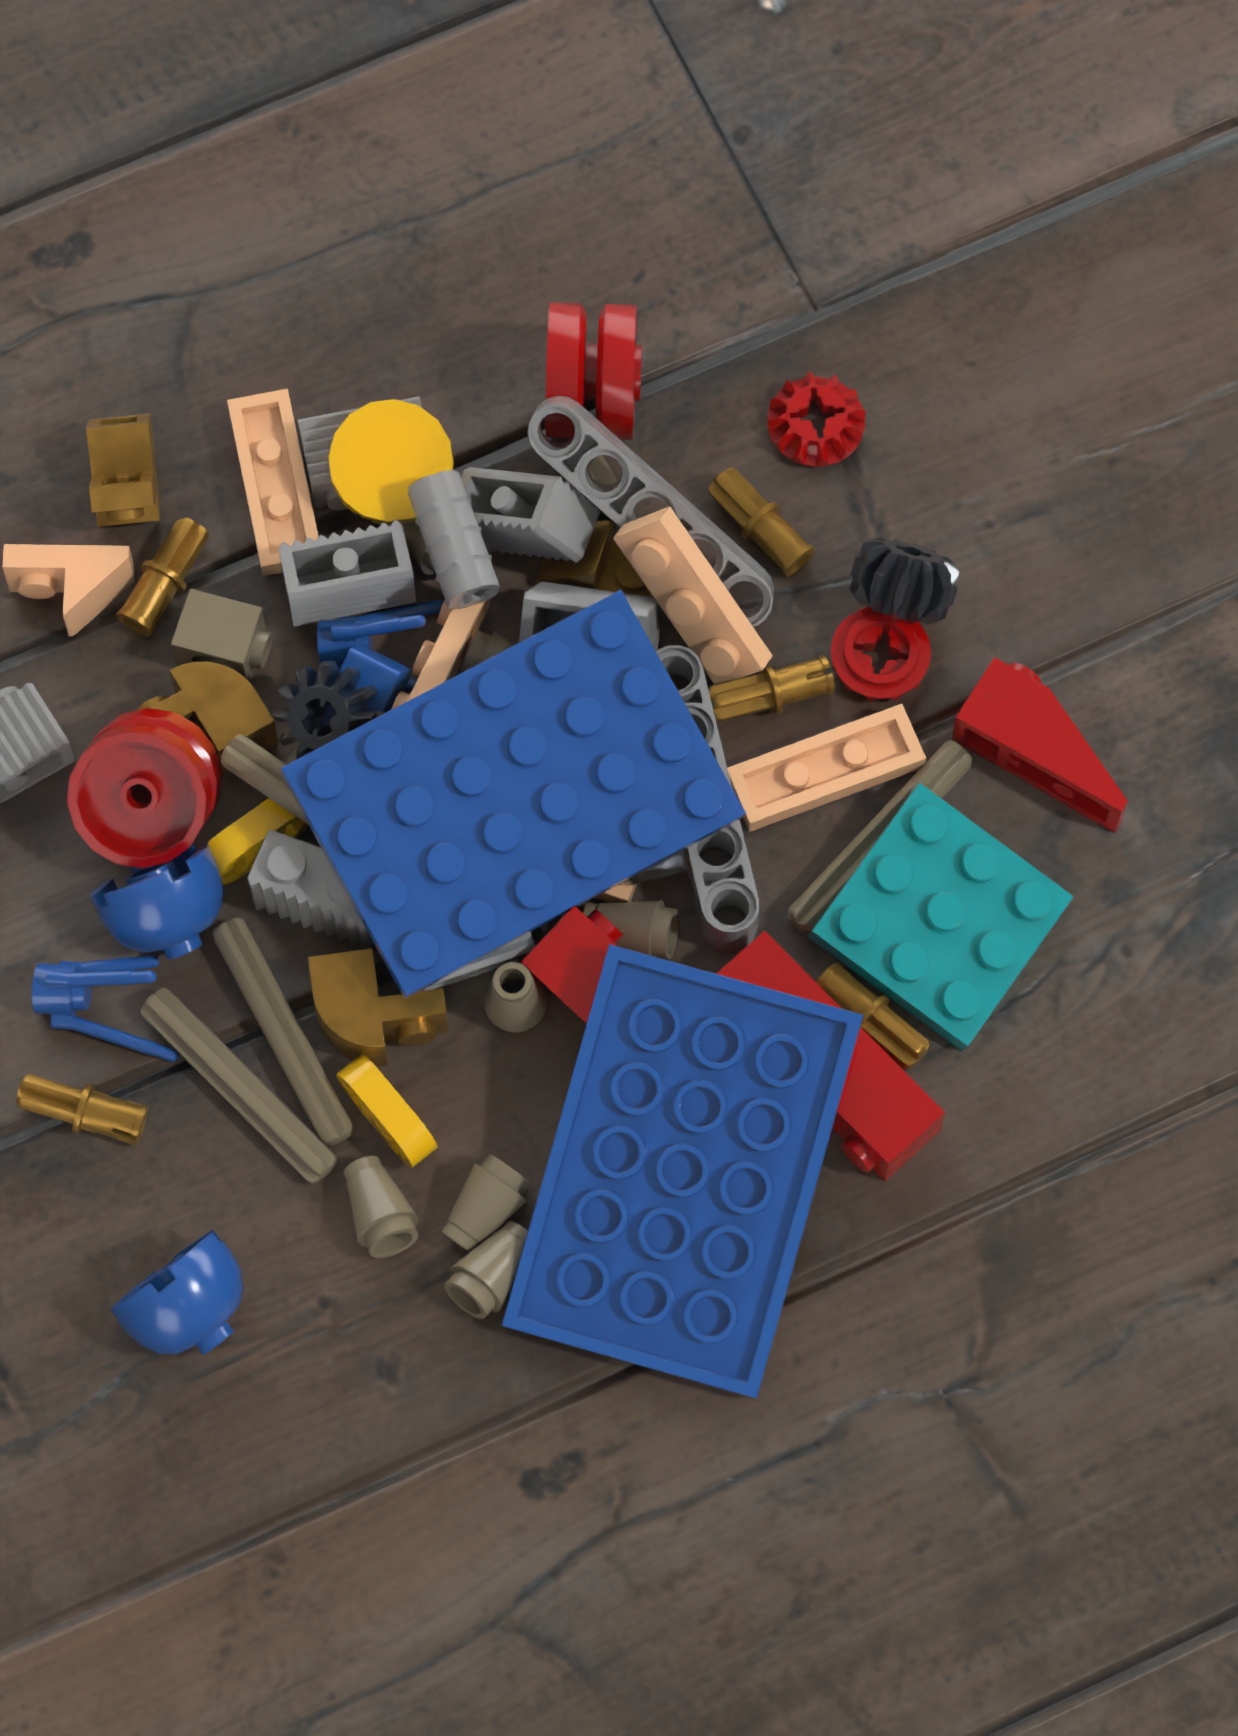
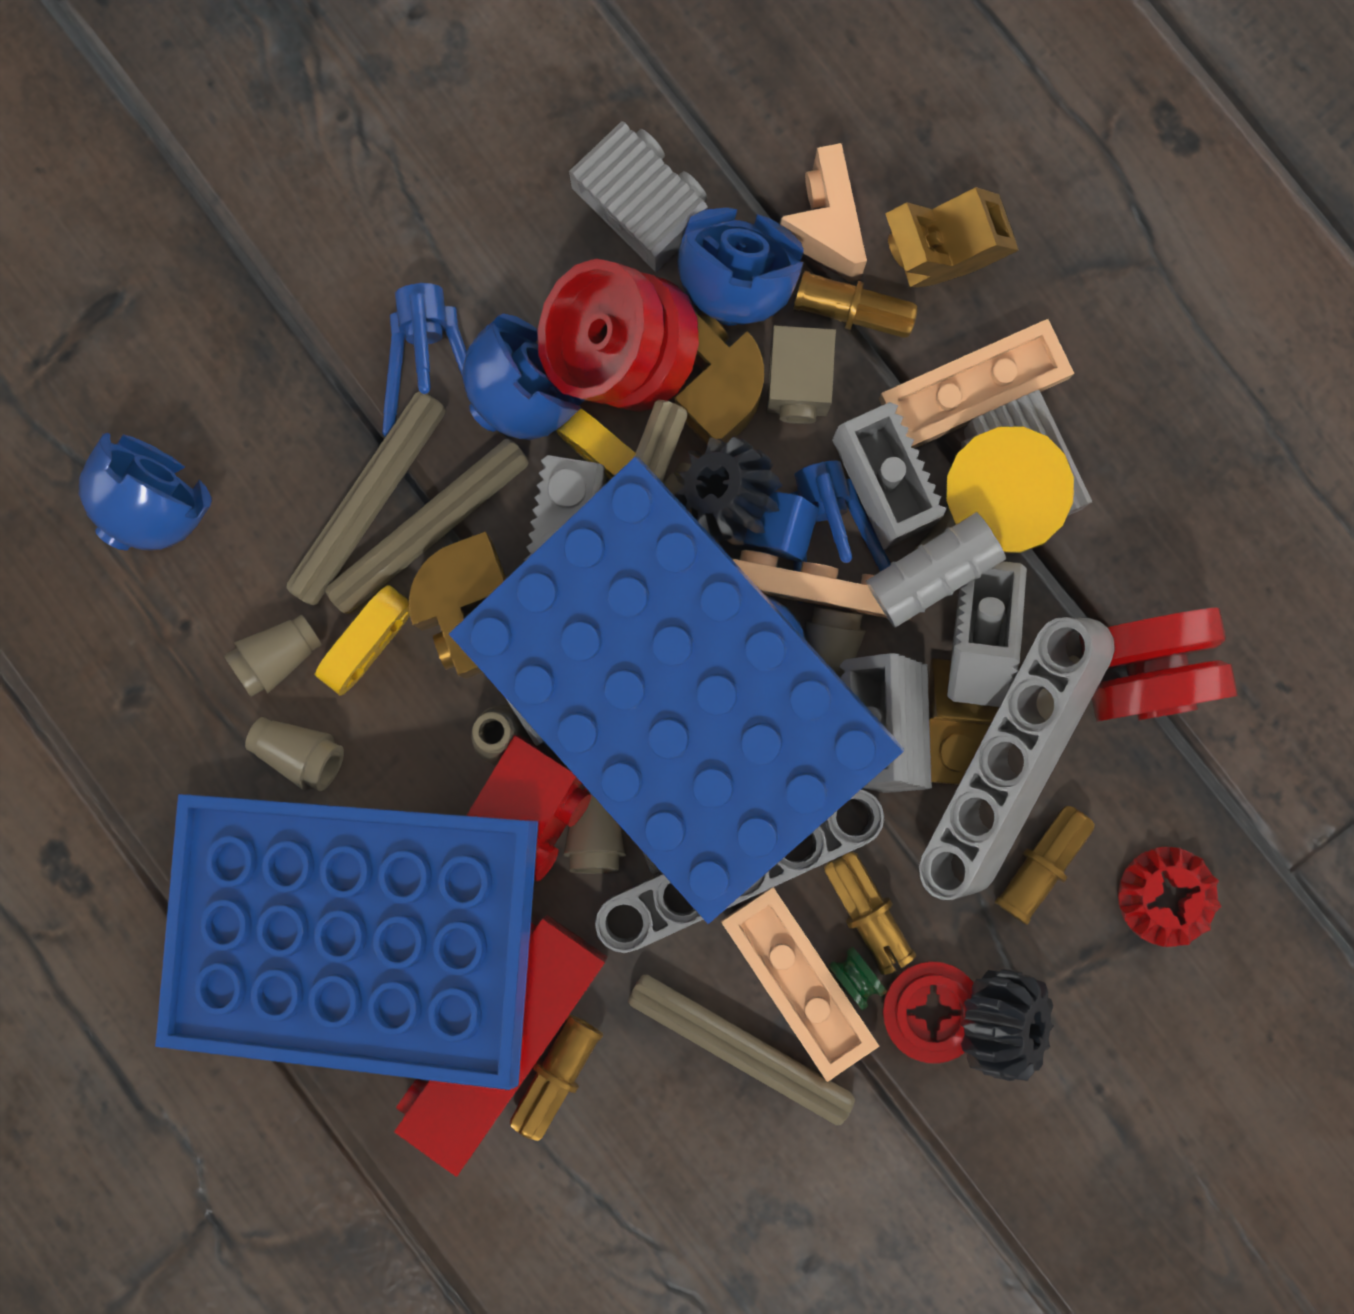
camera: 80 degrees right, 15 degrees up
(83, 1108) = (312, 362): pearl gold axle -> none
(101, 665) = (738, 267): none -> blue cylinder
(487, 1273) = (231, 771): dark tan cone -> none
(692, 596) = (935, 818): light nougat plate -> none
(831, 709) = (857, 978): none -> dark green bush
(940, 917) = (669, 1127): teal plate -> none
(1029, 734) = (875, 1185): red slope -> none

